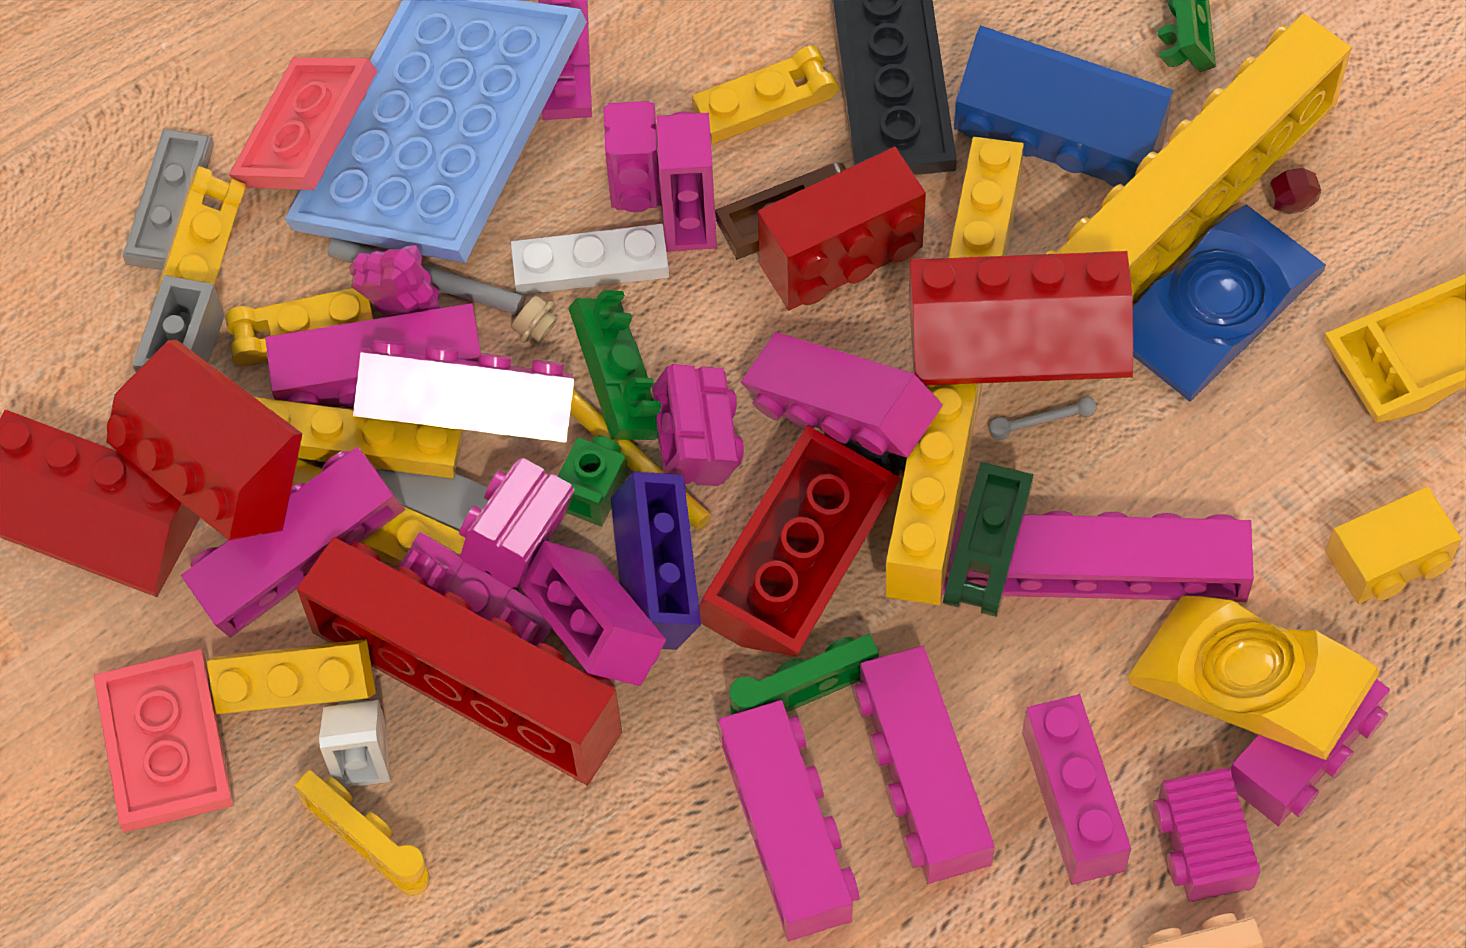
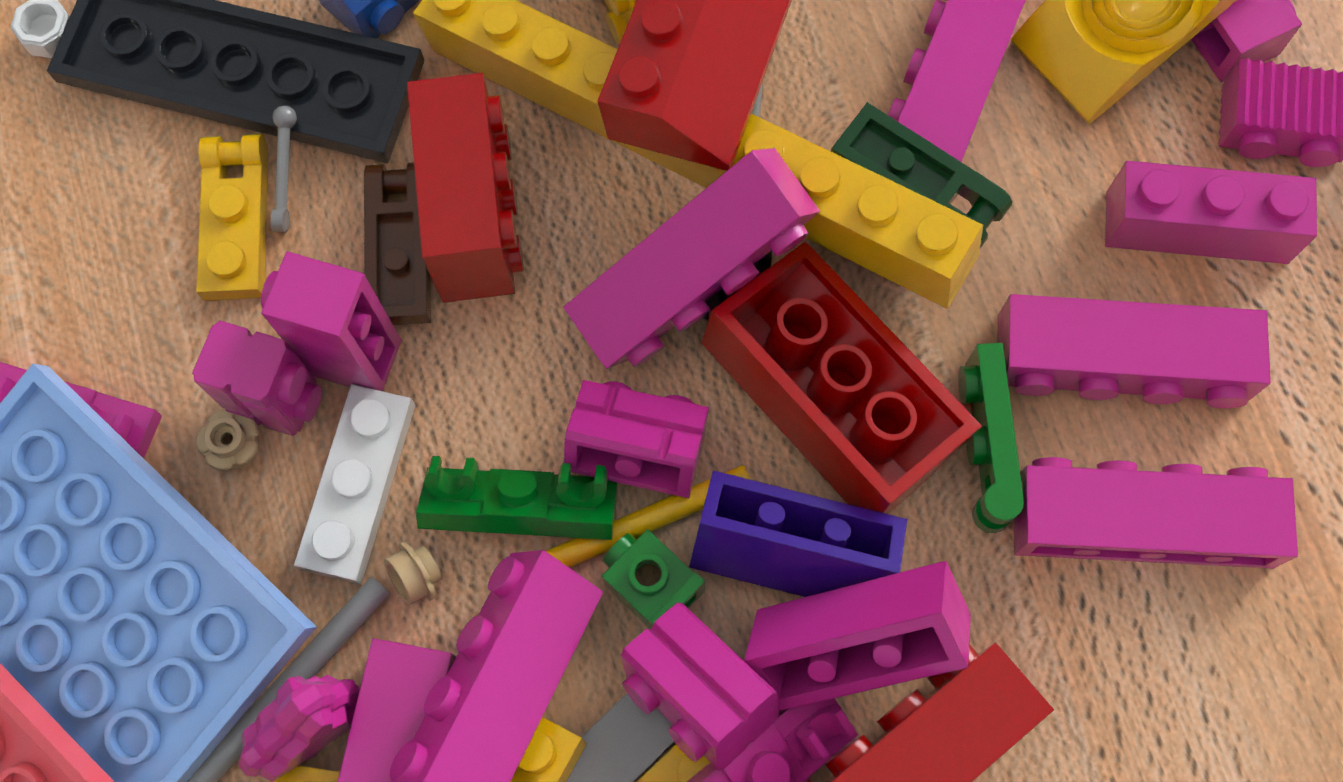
camera: 70 degrees left, 10 degrees up
(586, 175) = (239, 451): none -> tan plate
(778, 126) = (284, 119): none -> light grey hinge

